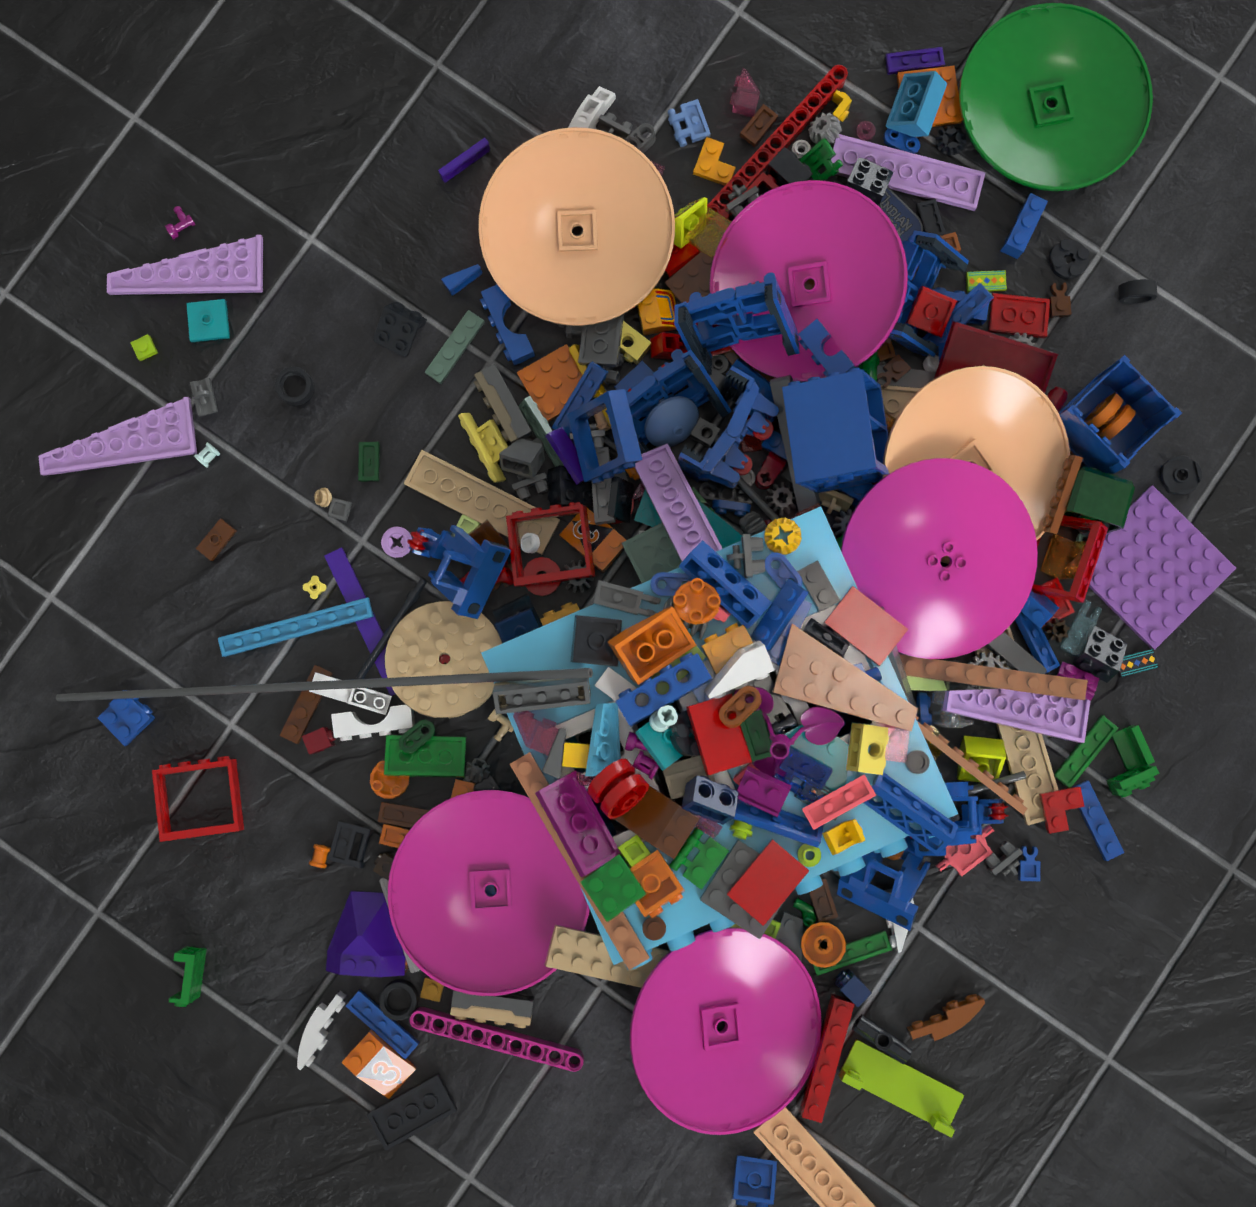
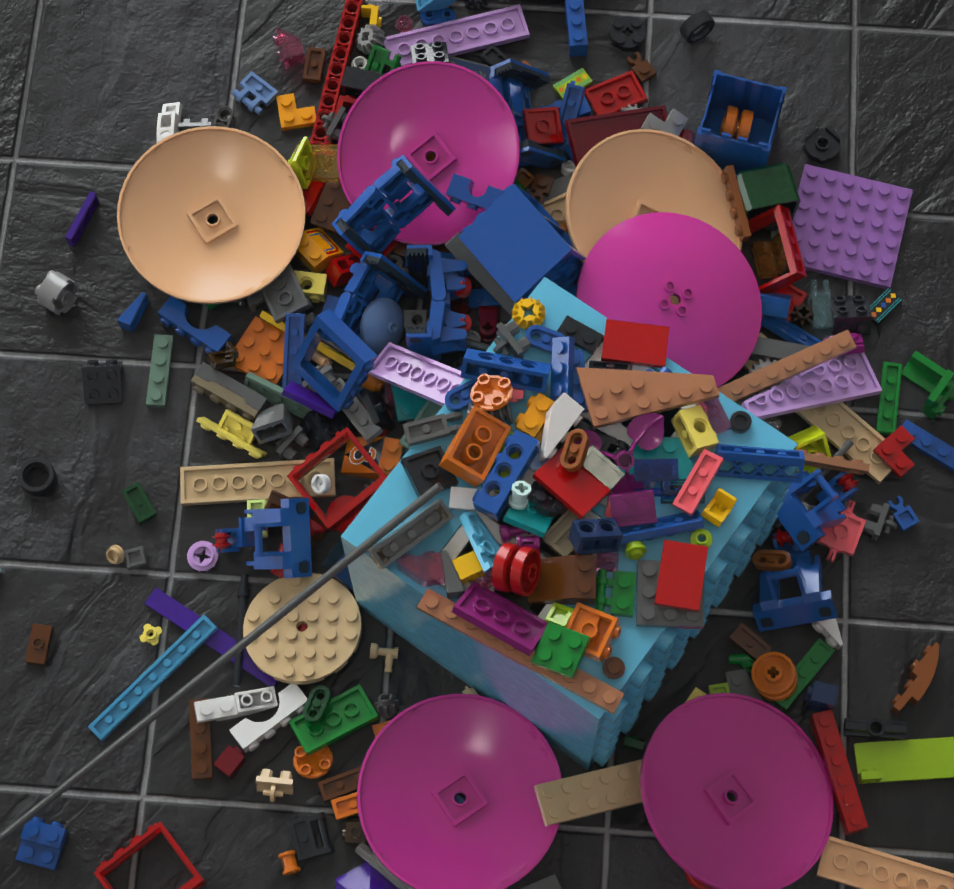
camera: 30 degrees left, 15 degrees down
(353, 786) = (274, 786): none -> tan hips
(402, 220) = (57, 292): none -> light grey brick
(514, 370) = (225, 358): none -> dark brown bracket
(1045, 380) = (673, 124): none -> light grey plate

